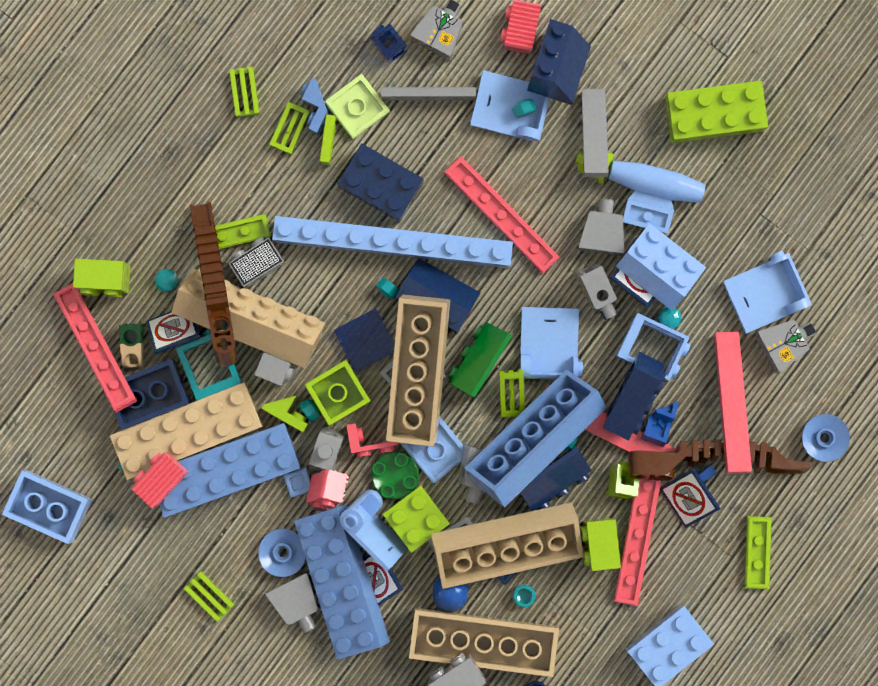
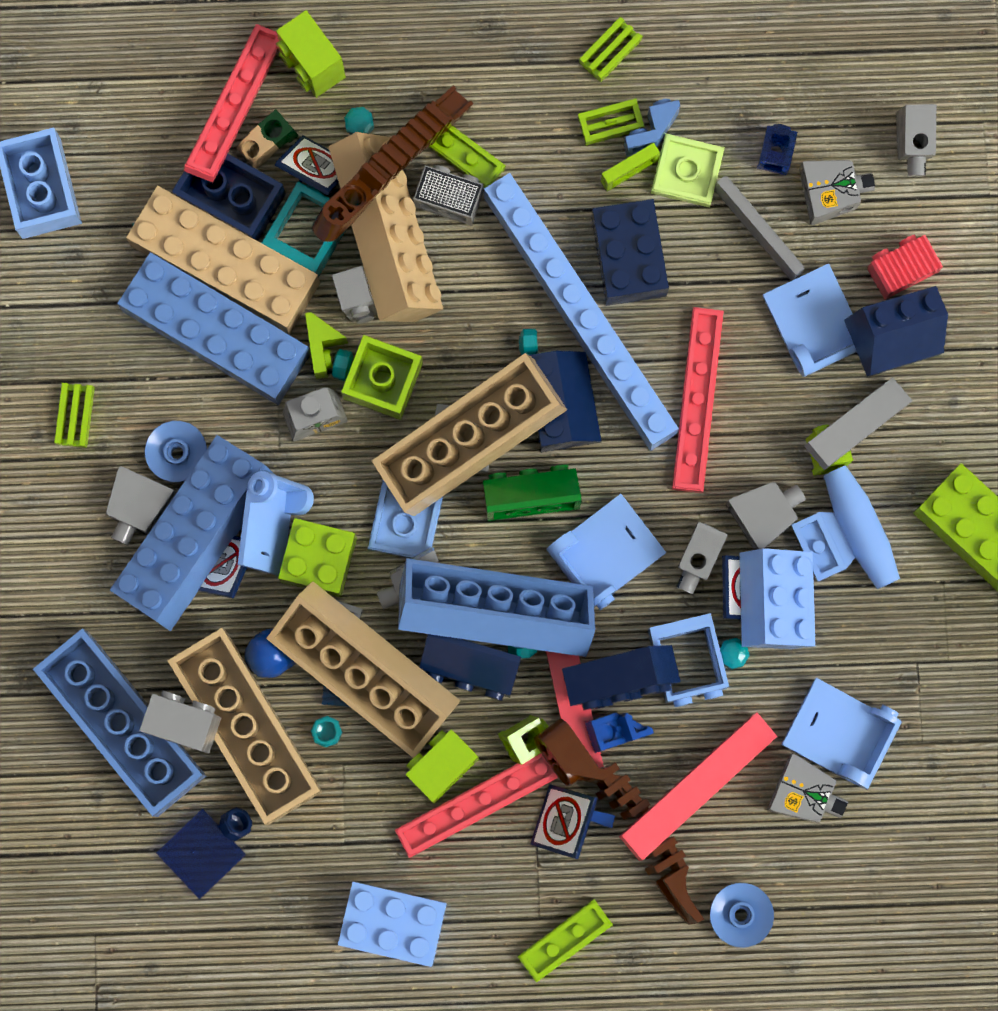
camera: 55 degrees right, 5 degrees down
(159, 479) = (150, 265): coral brick -> none
(297, 482) = (260, 412): light blue tile -> none
(326, 489) = (274, 441): coral brick -> none
(356, 436) = (350, 432): coral bracket -> none
(365, 340) = (458, 363): clear blue tile -> none
(395, 475) = (345, 501): green dish -> none
(511, 376) = (541, 536): lime tile -> none
(524, 108) = (824, 333): teal tile -> none

